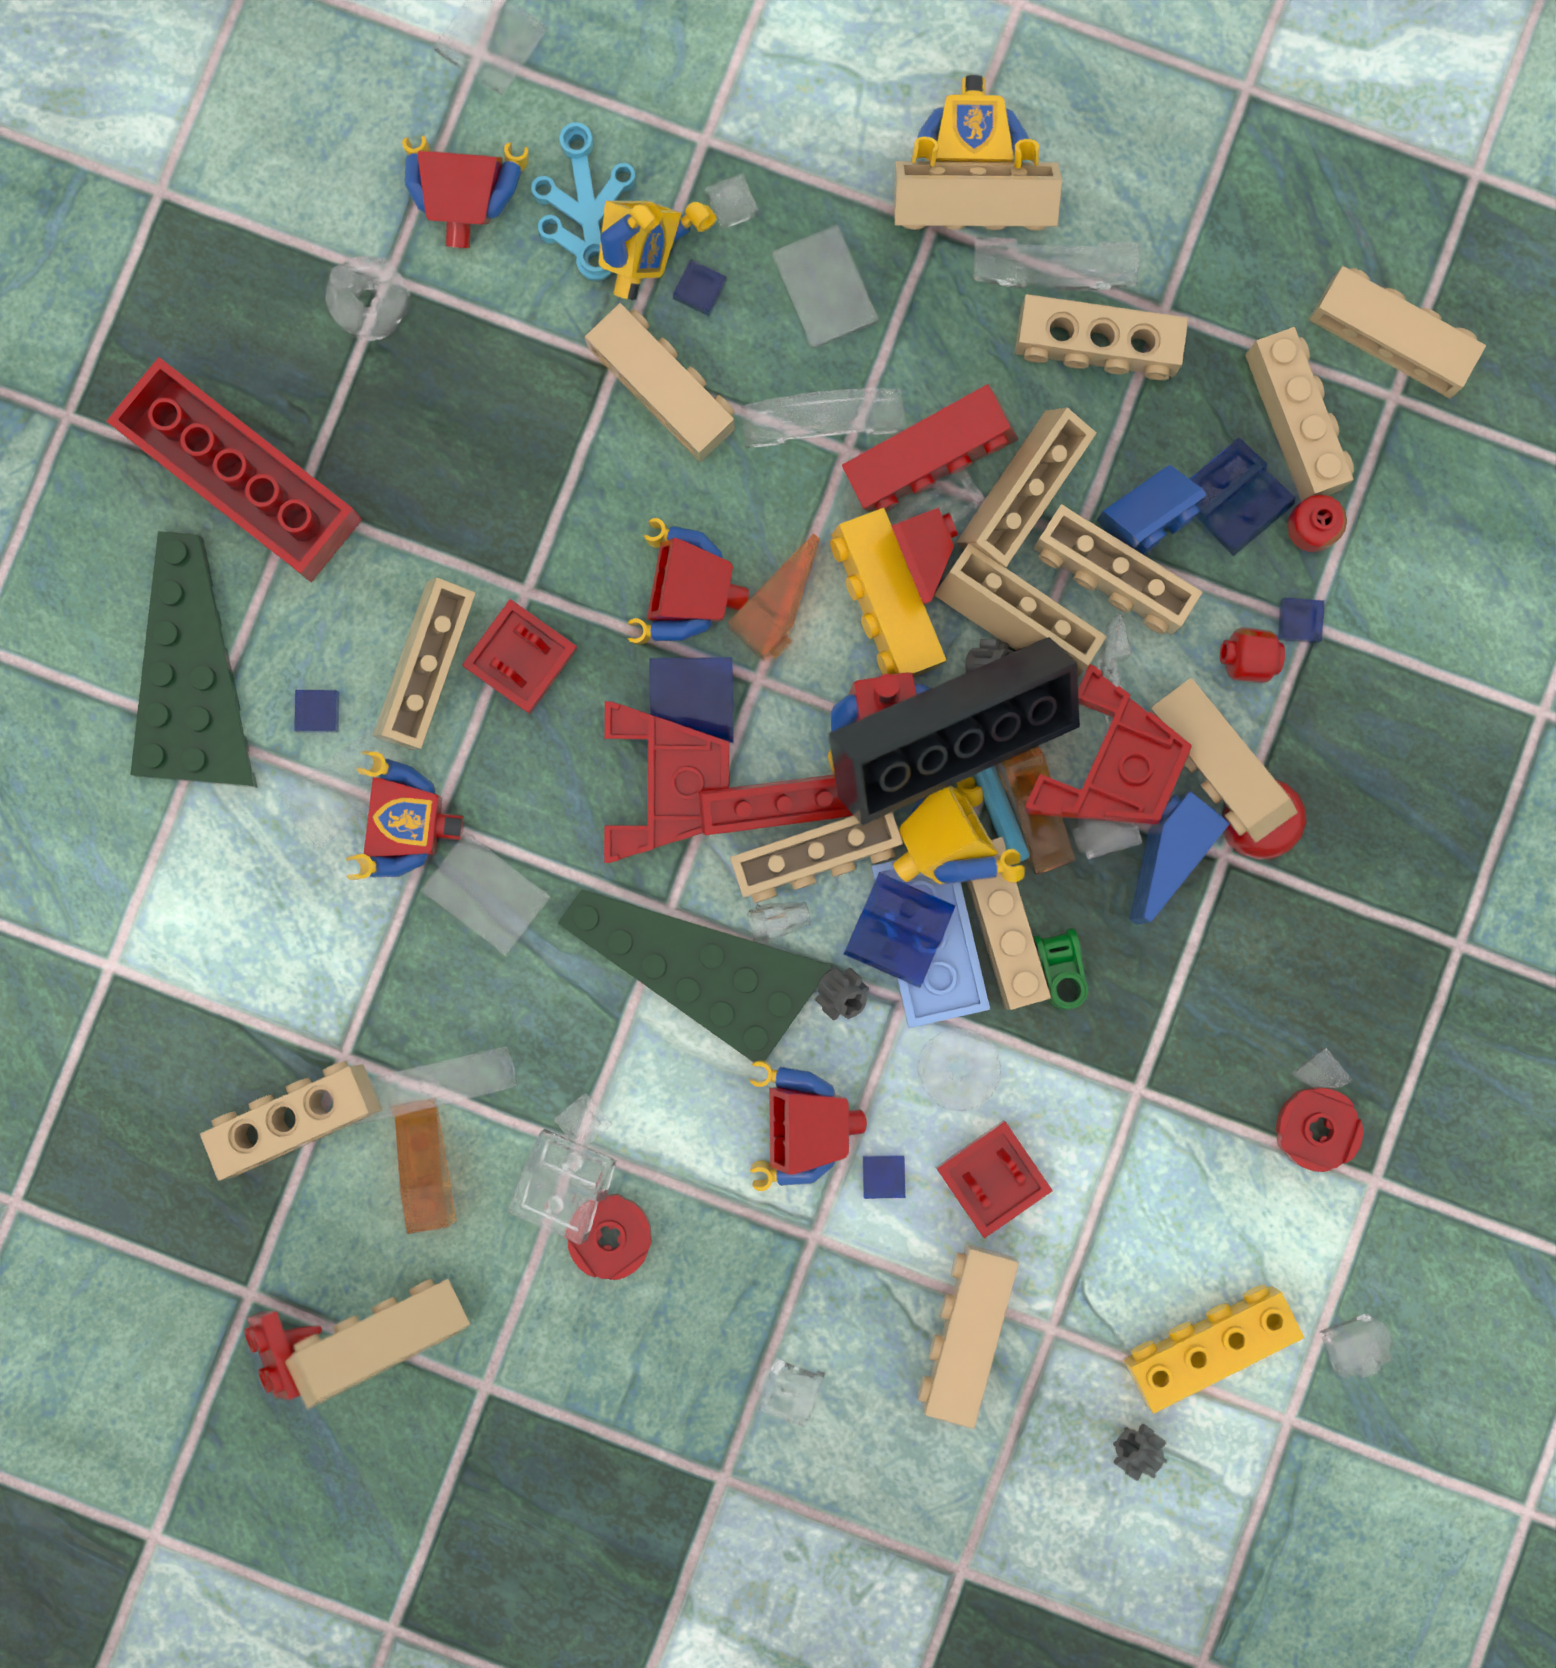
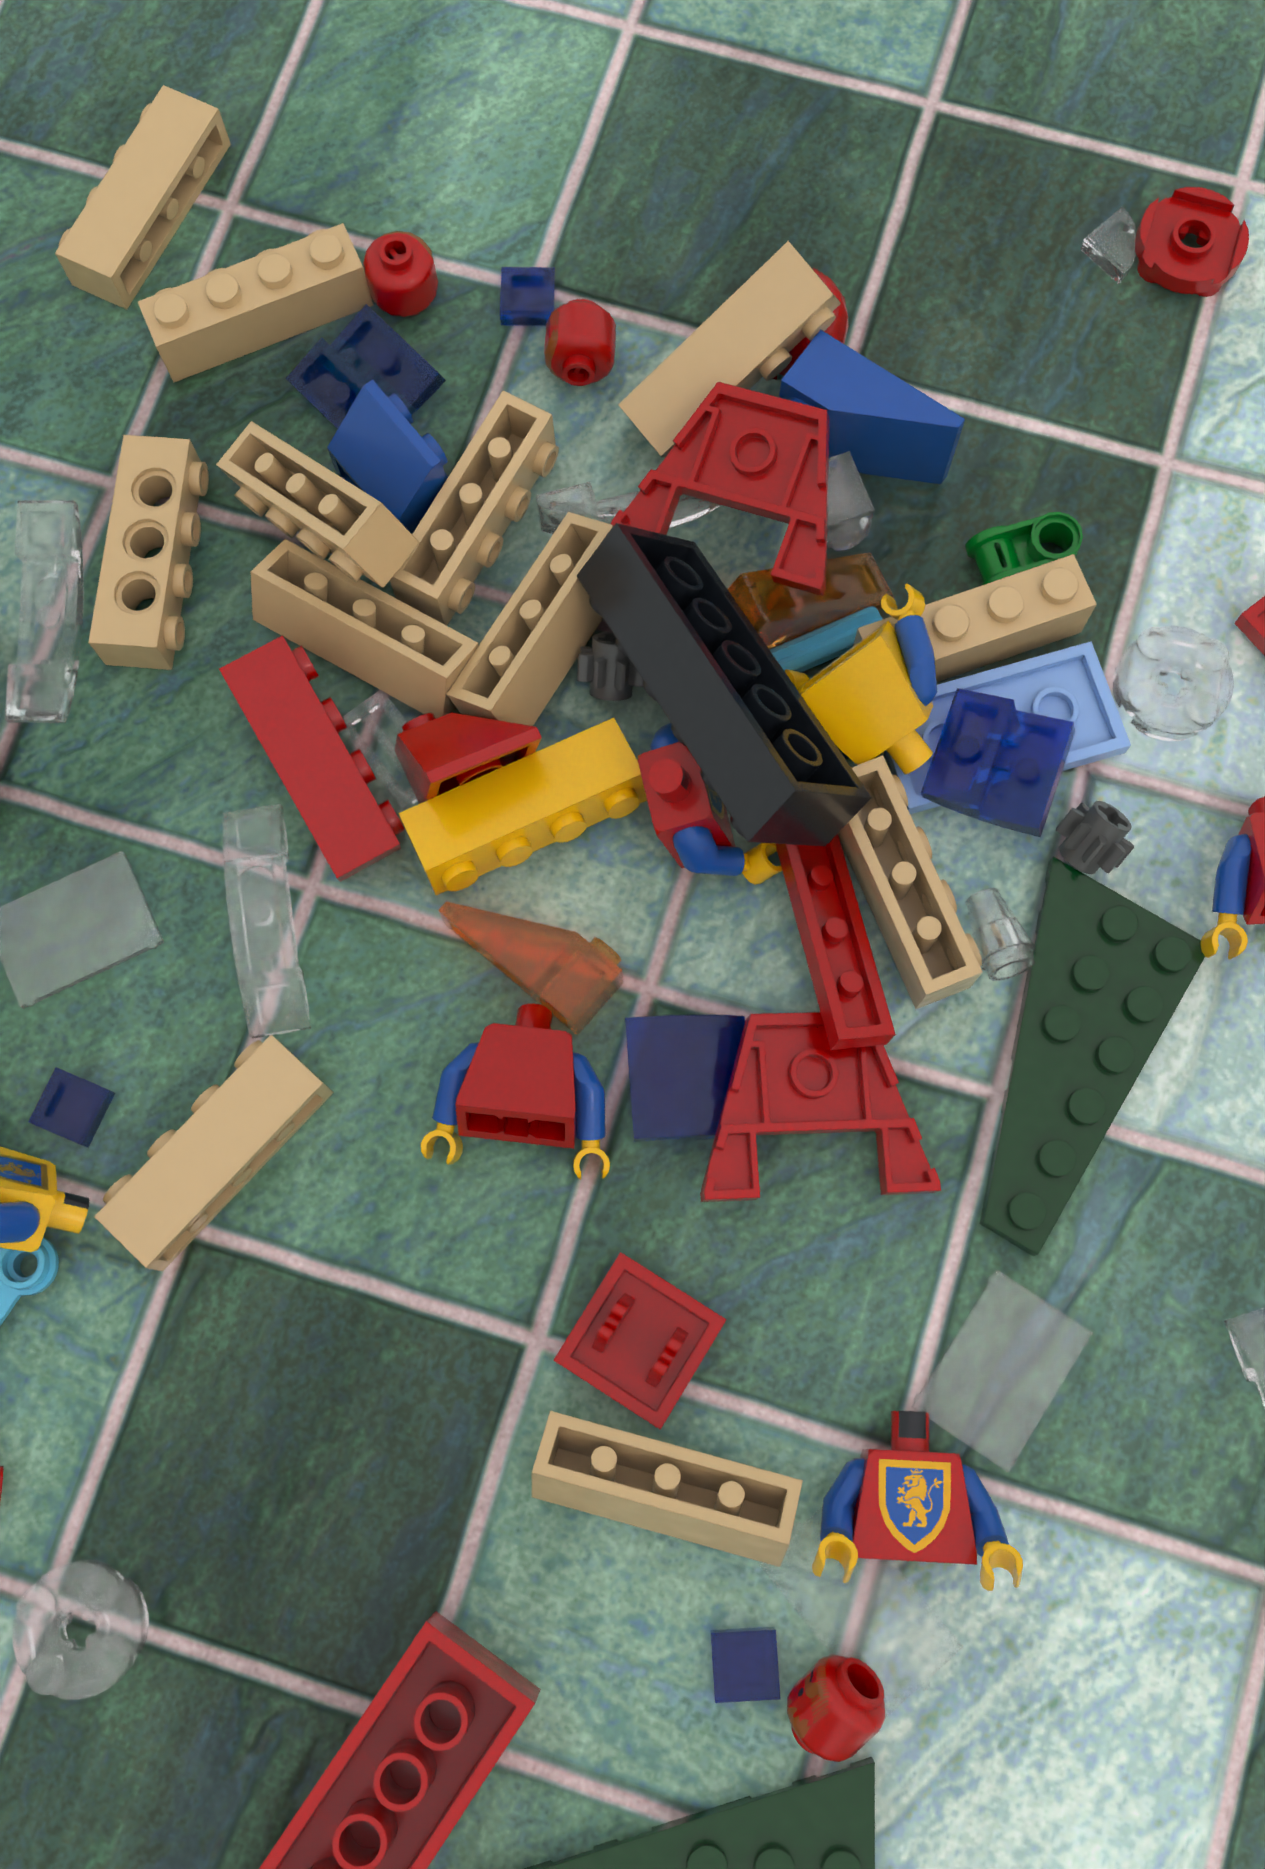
camera: 85 degrees left, 10 degrees down
(286, 763) = (836, 1707): none -> red head
(1116, 454) = (318, 504): none -> tan brick

